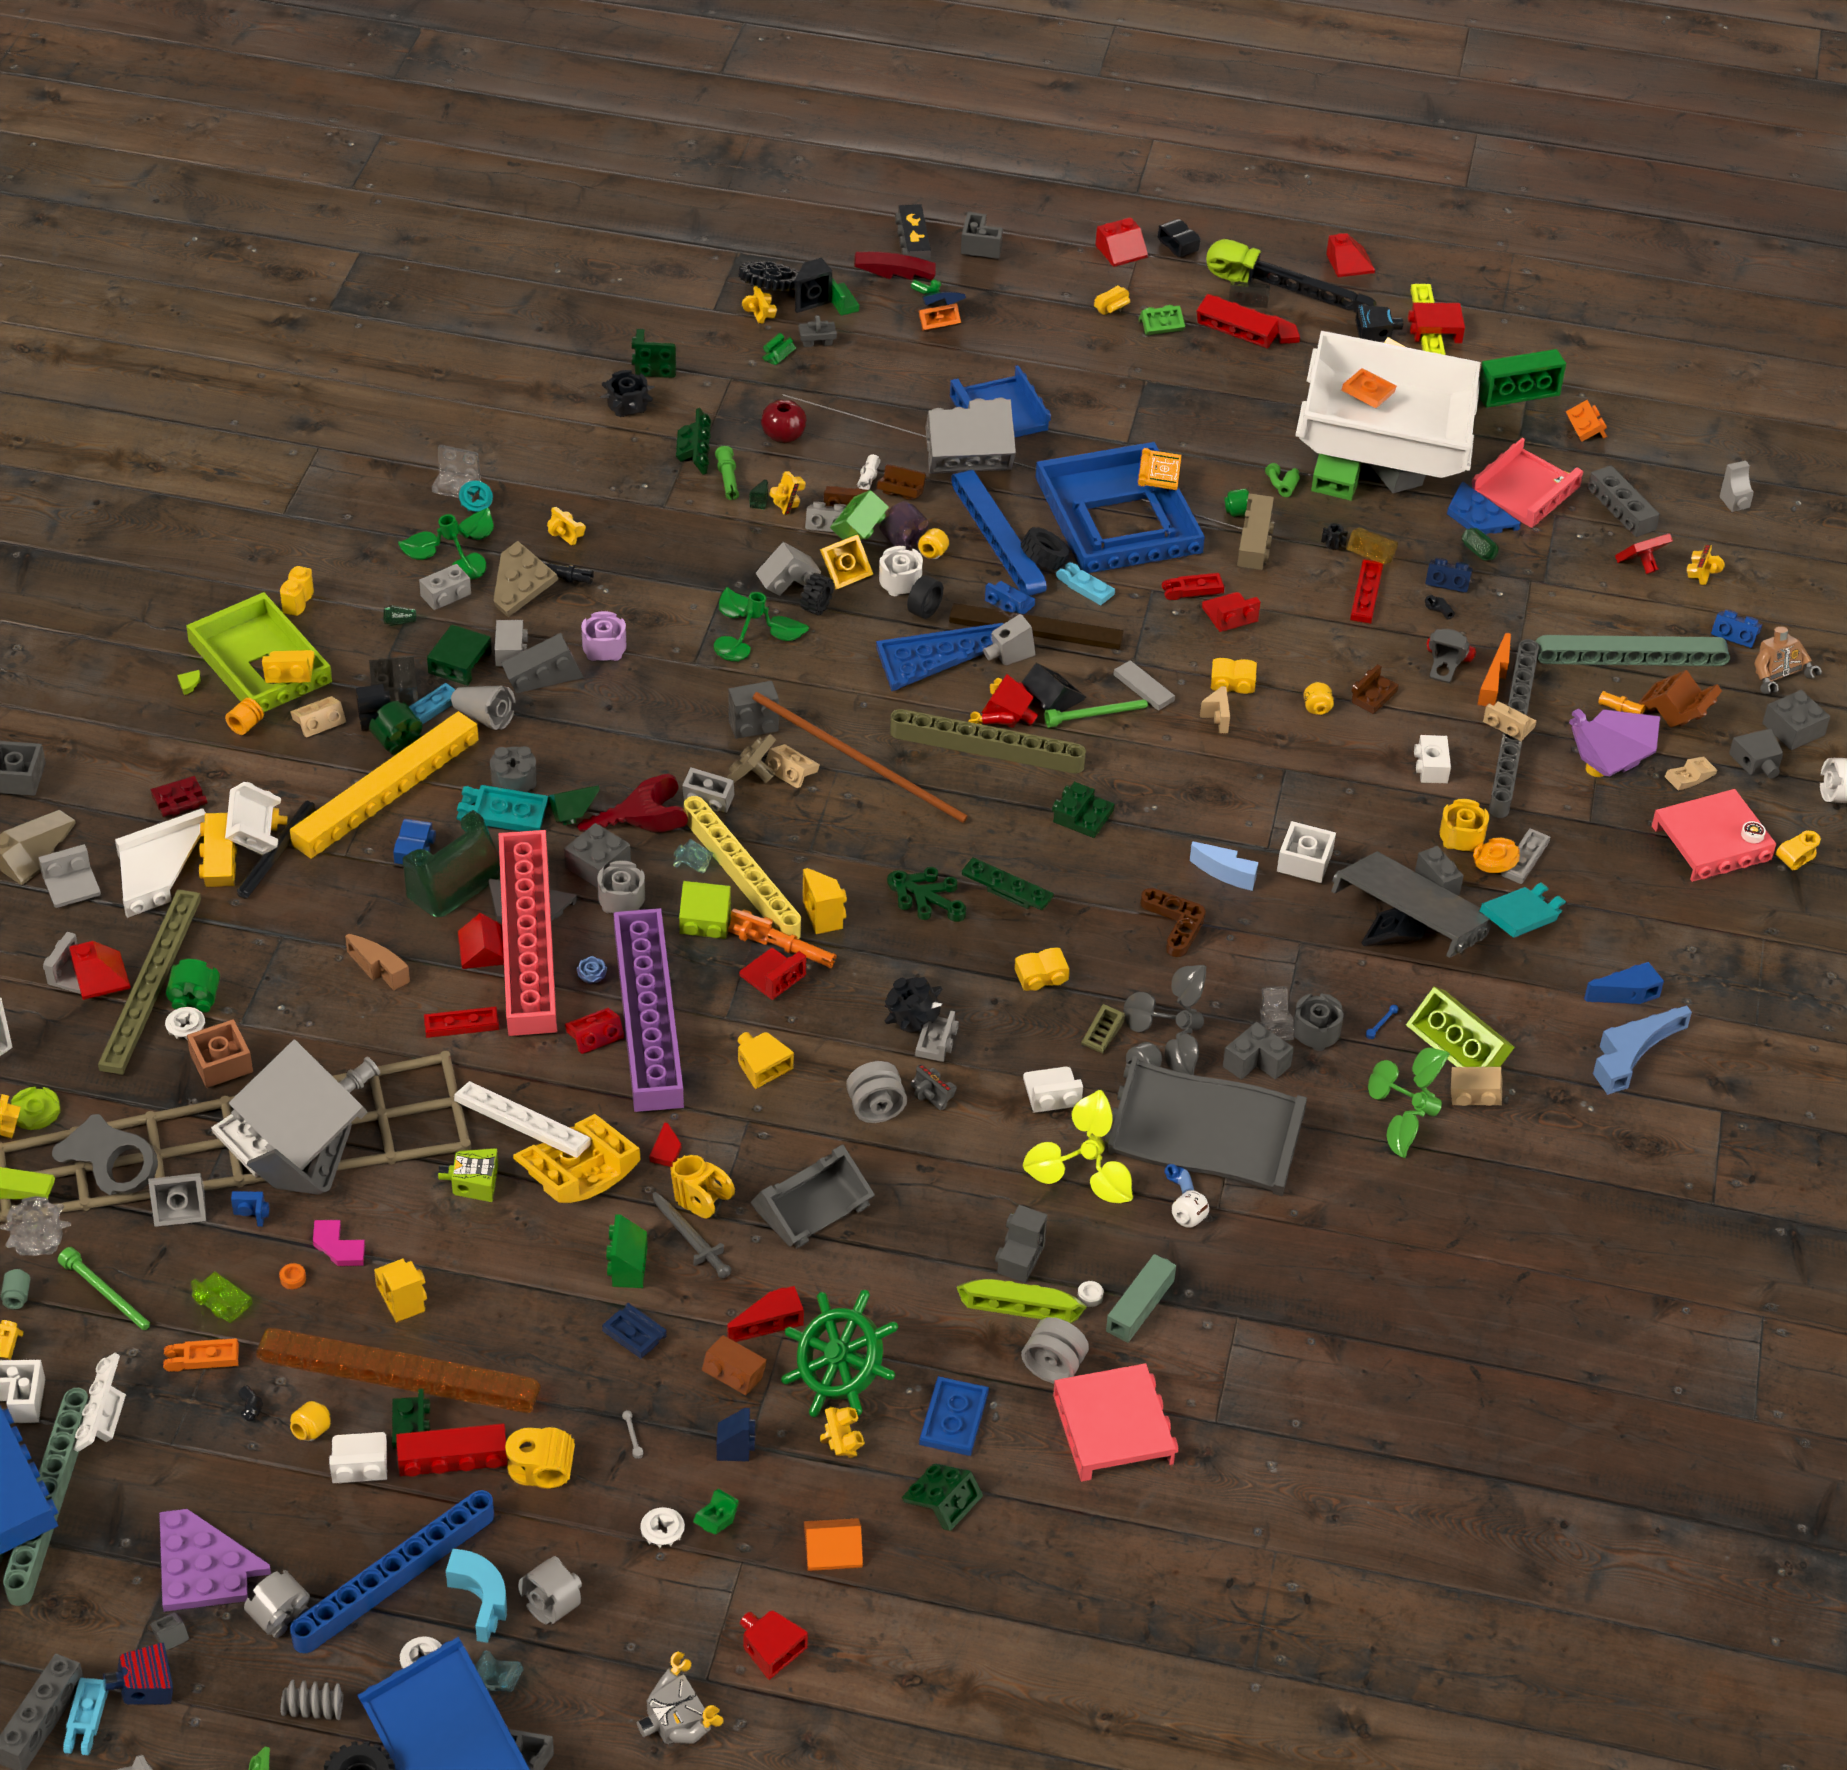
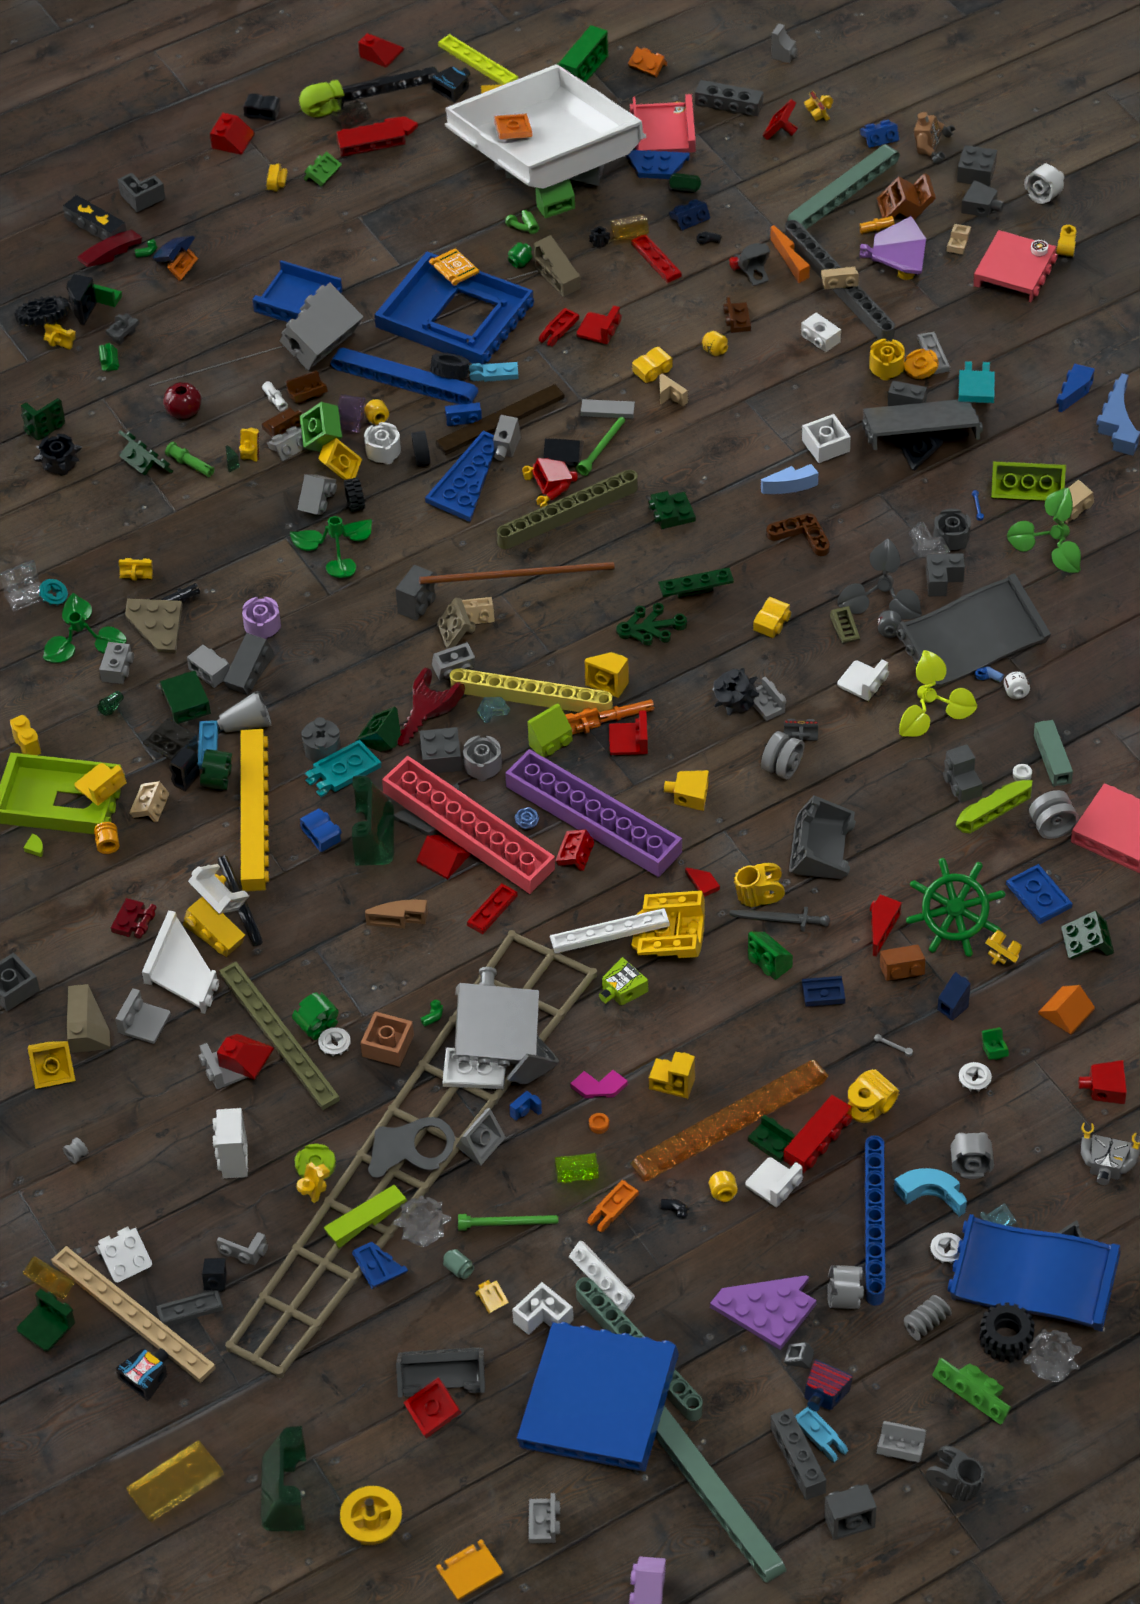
camera: 40 degrees left, 5 degrees up
(1437, 319) = (485, 55): red panel -> none

